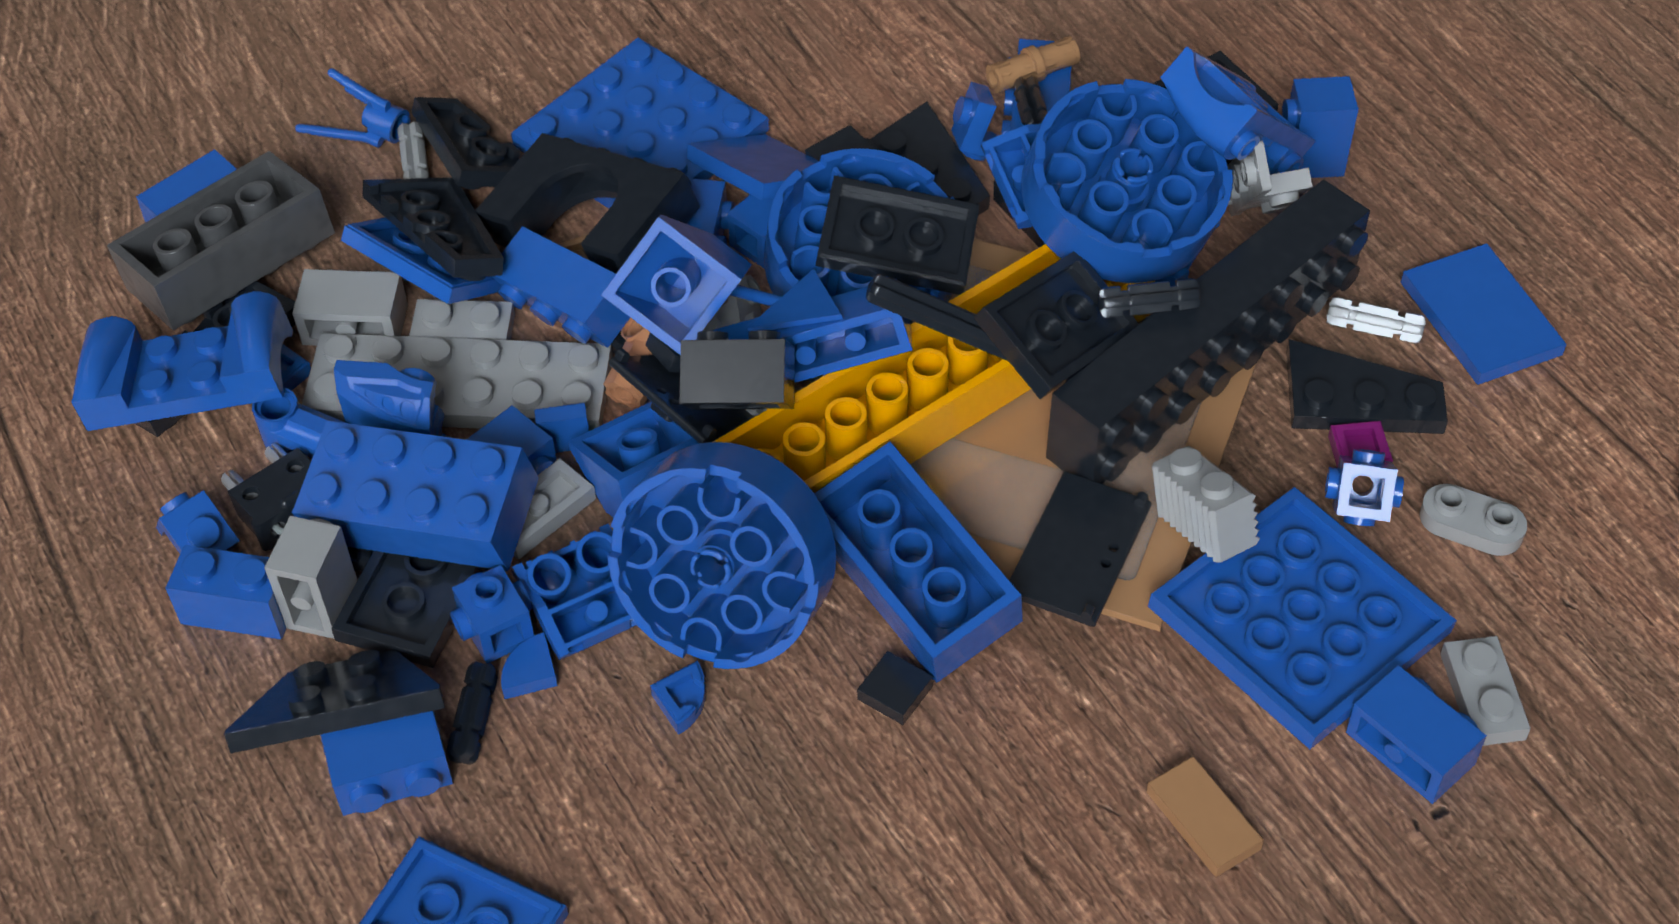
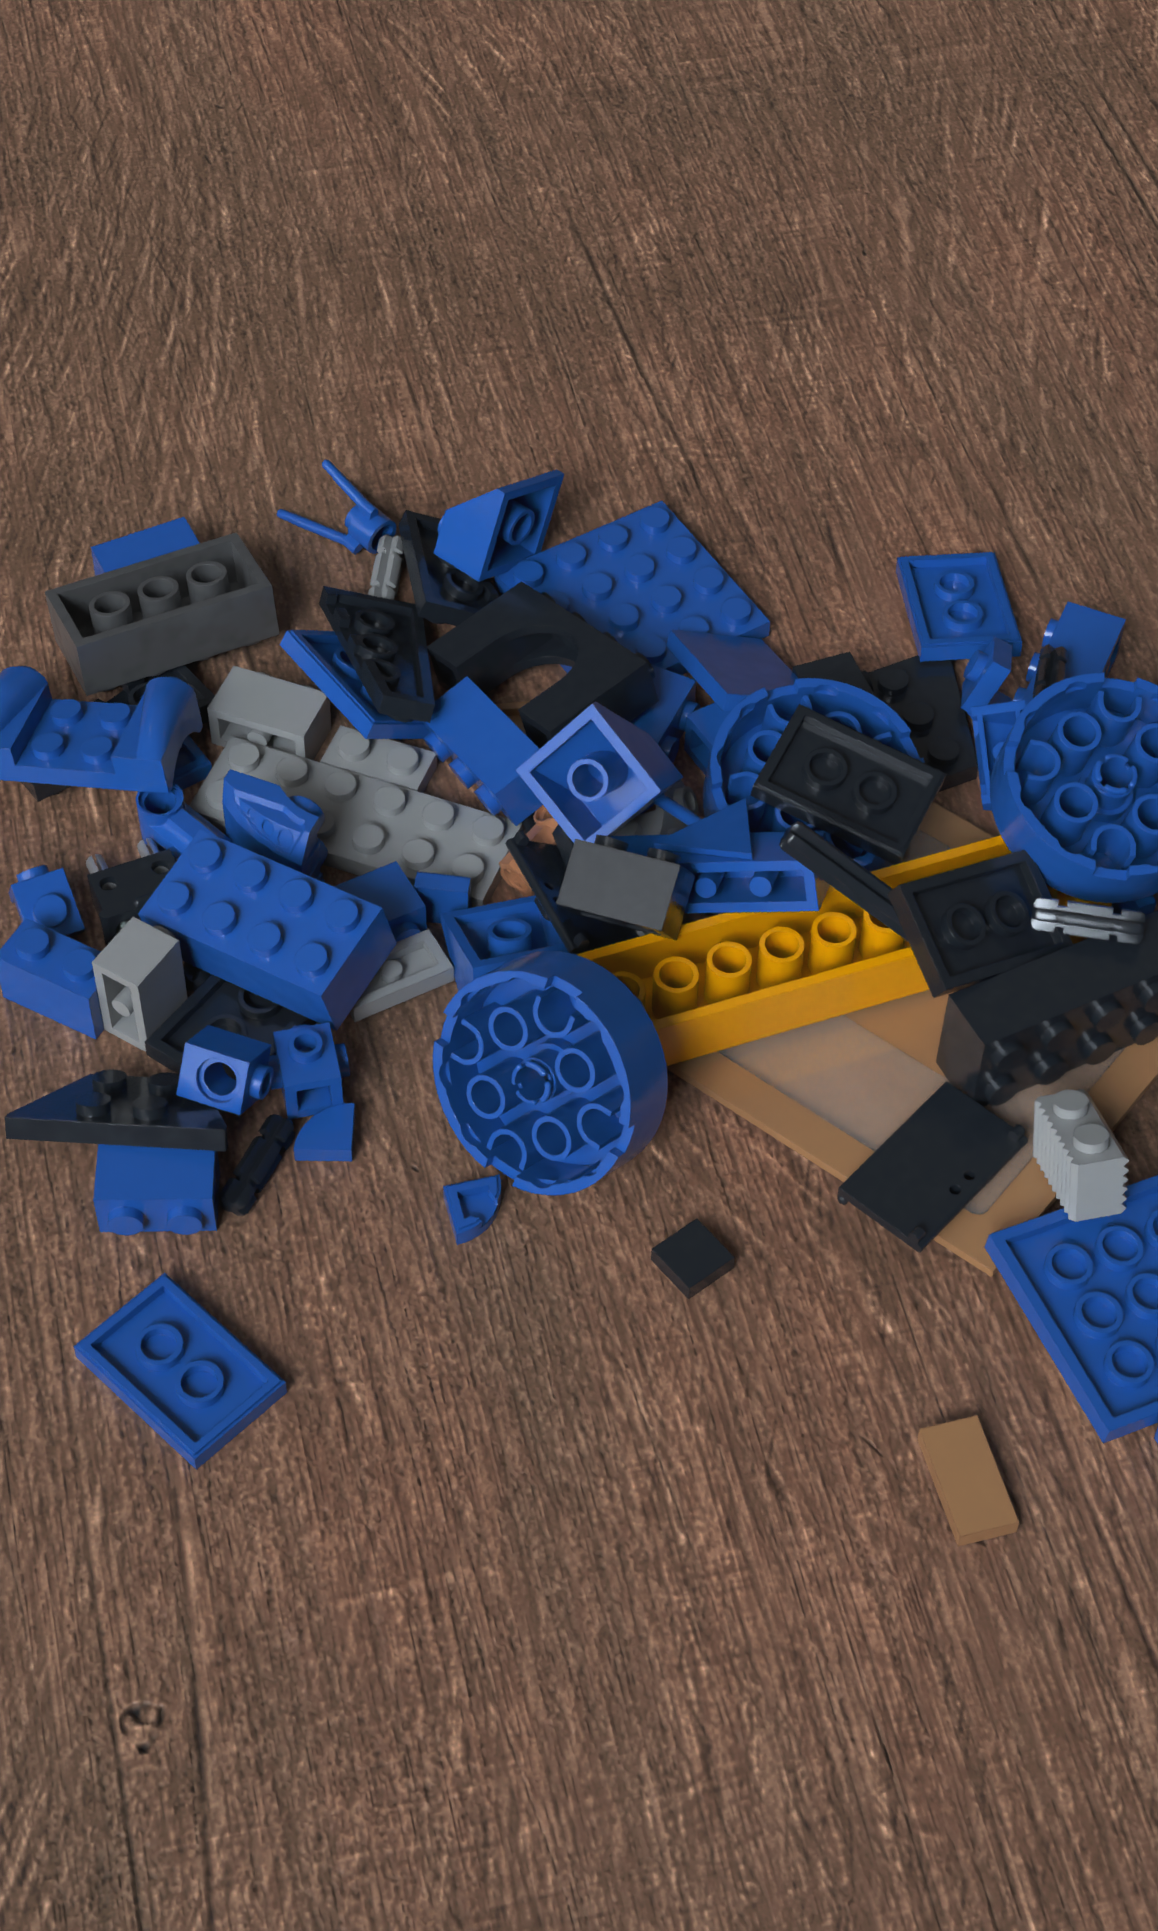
camera: 15 degrees right, 0 degrees up
(401, 646) = (207, 1082): none -> blue brick
(504, 92) = (499, 526): none -> blue slope
(575, 594) = (394, 1074): blue slope -> none
(917, 563) = (752, 1133): blue brick -> none
(921, 65) = (956, 604): none -> blue tile
(1033, 62) = (1070, 632): medium nougat pin -> none

